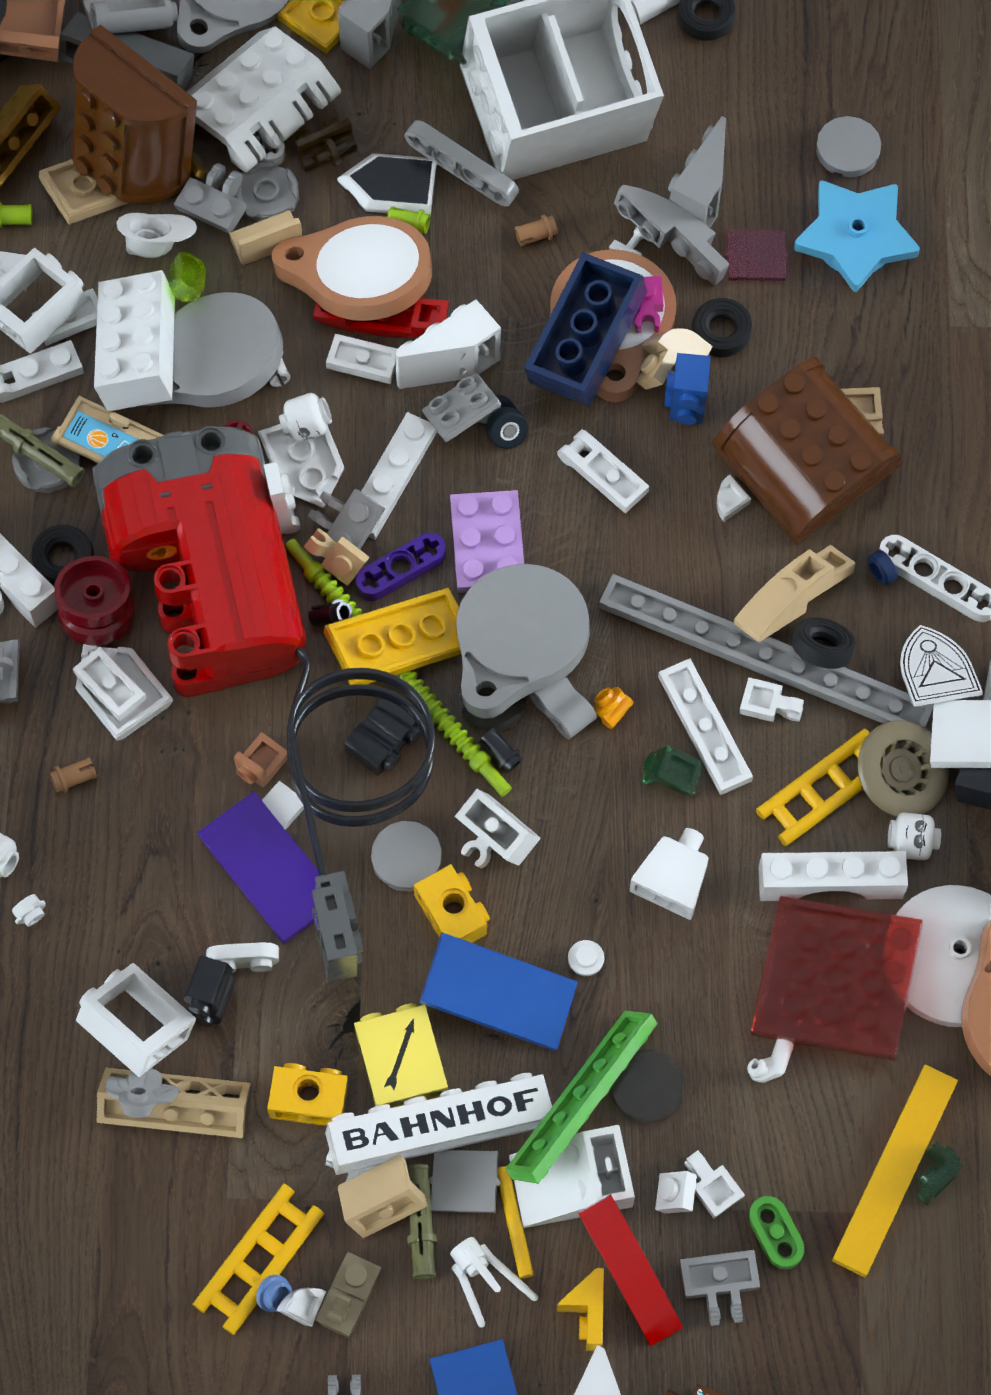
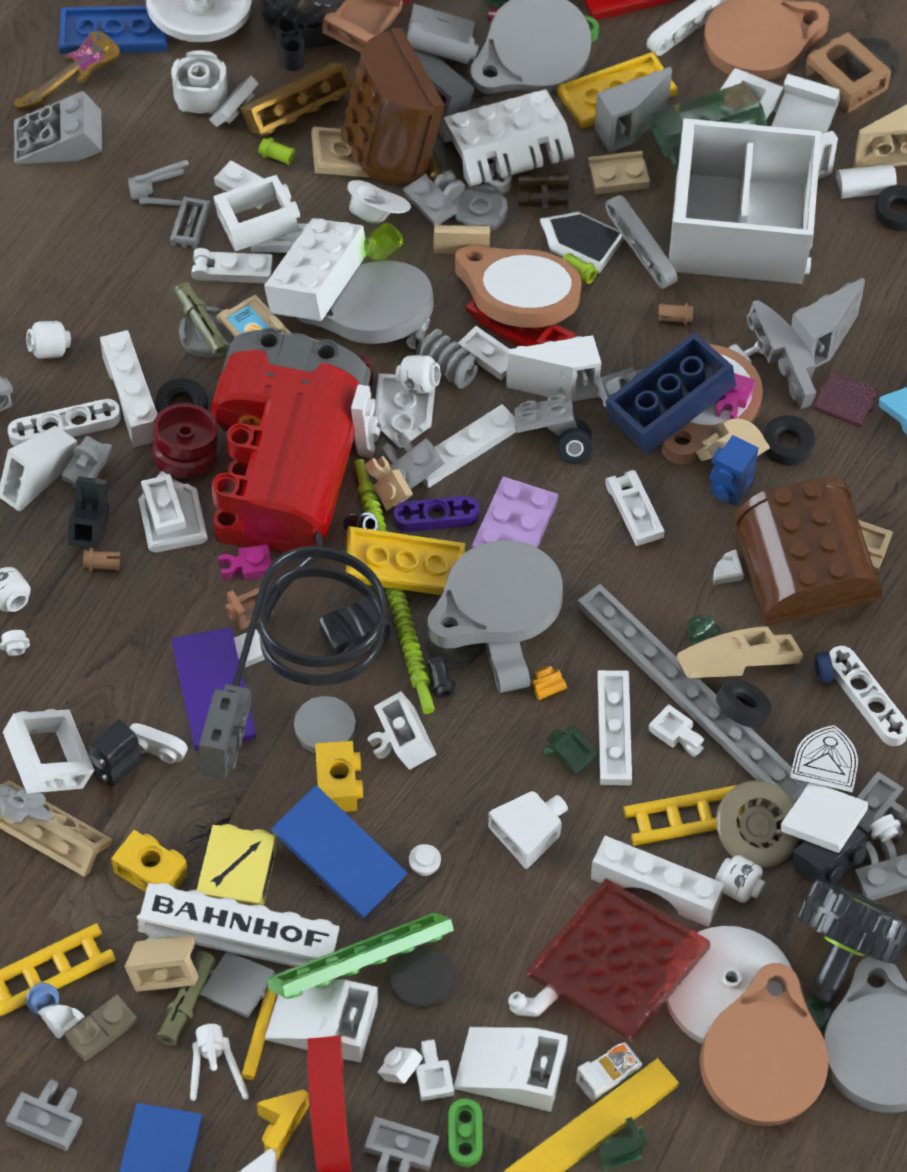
camera: 25 degrees right, 10 degrees down
(33, 729) = (90, 513): none -> black brick
(233, 706) = (251, 563): none -> dark pink plate
(325, 384) = (452, 361): none -> light grey piece
(393, 90) = (618, 172): none -> tan plate
(521, 339) = (613, 382): none -> light grey hips
(738, 579) = (701, 628): none -> clear green plate
(788, 1140) = (512, 1065): none -> white slope
(883, 1102) = (607, 1072): none -> white leg

